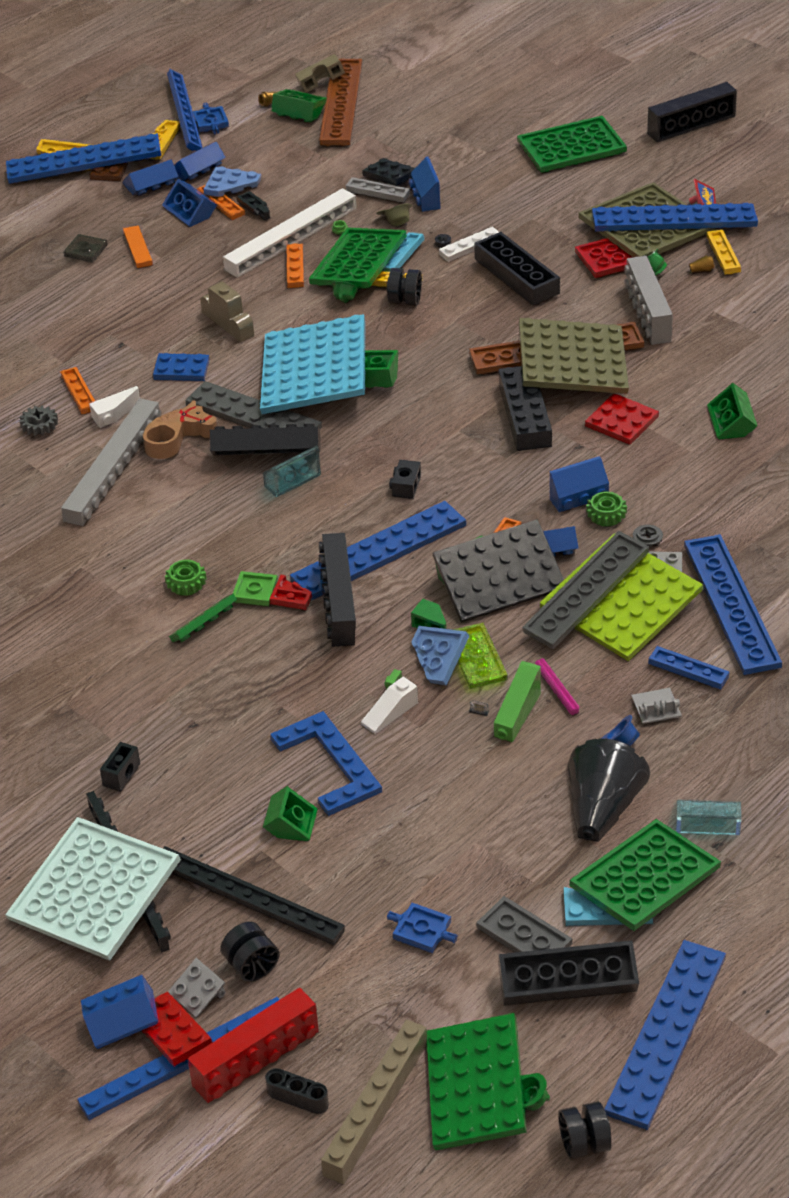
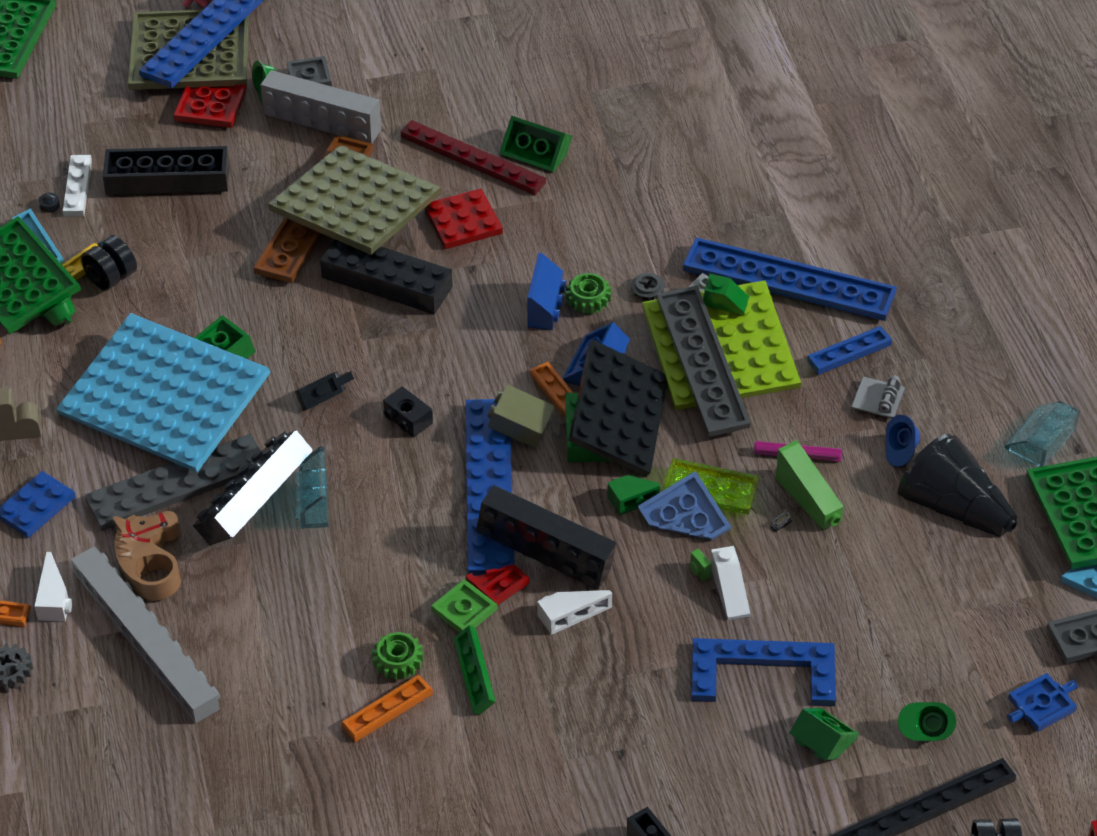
camera: 60 degrees left, 5 degrees up
(141, 596) = (386, 708): none -> orange tile
(295, 637) = (570, 608): none -> white slope
(341, 865) = (926, 721): none -> green piece
(390, 432) = (322, 389): none -> black hinge
(446, 526) = (520, 415): none -> olive brick
(656, 566) = (725, 295): none -> green slope
(683, 282) = (311, 69): none -> dark grey plate
(688, 395) = (473, 157): none -> dark red plate
(703, 264) = (296, 48): pearl gold cone -> none
(723, 252) = (292, 25): yellow plate -> none

